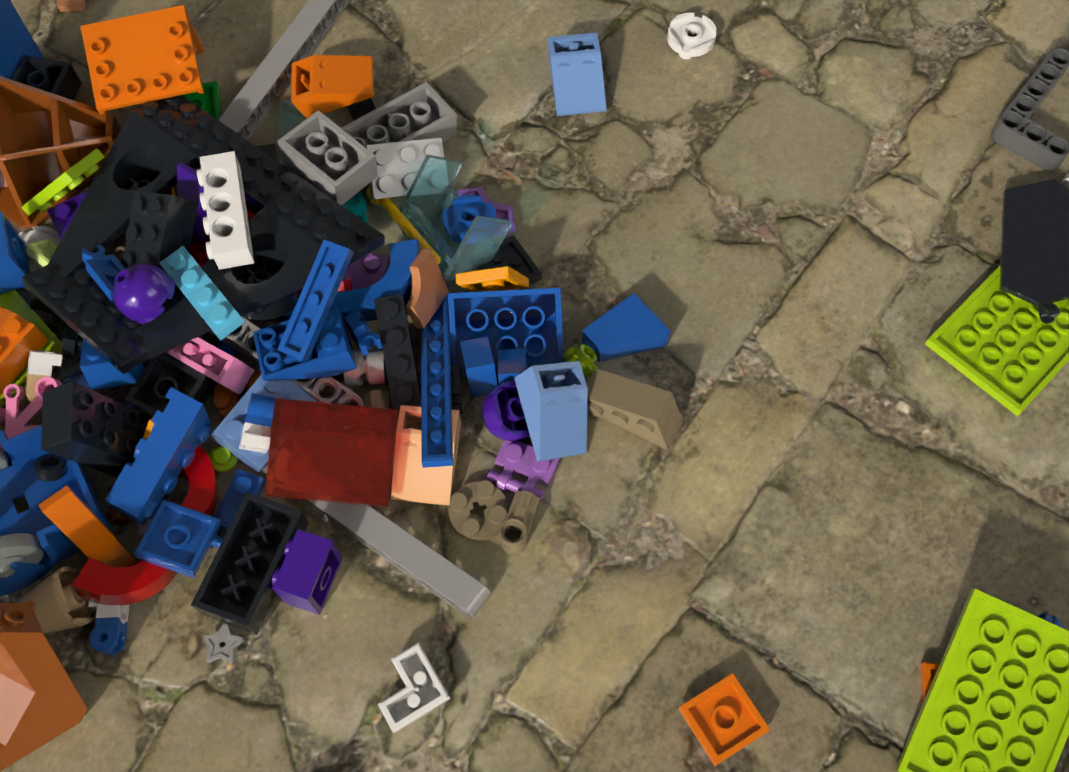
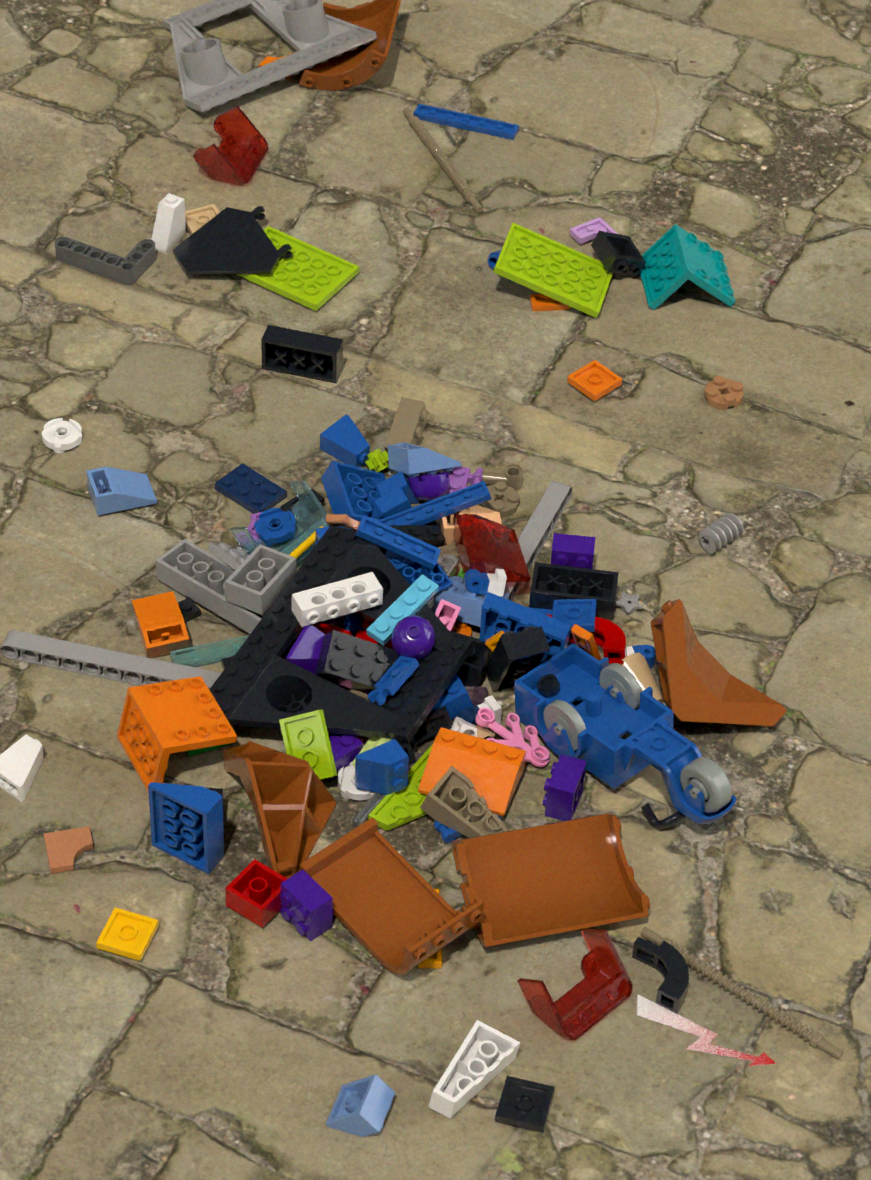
camera: 105 degrees left, 20 degrees down
(422, 689) = (625, 503): white brick -> none
(492, 280) = (332, 494): light orange tile -> none
(560, 214) = (250, 489): none -> dark blue plate
(808, 298) = (302, 354): none -> black brick

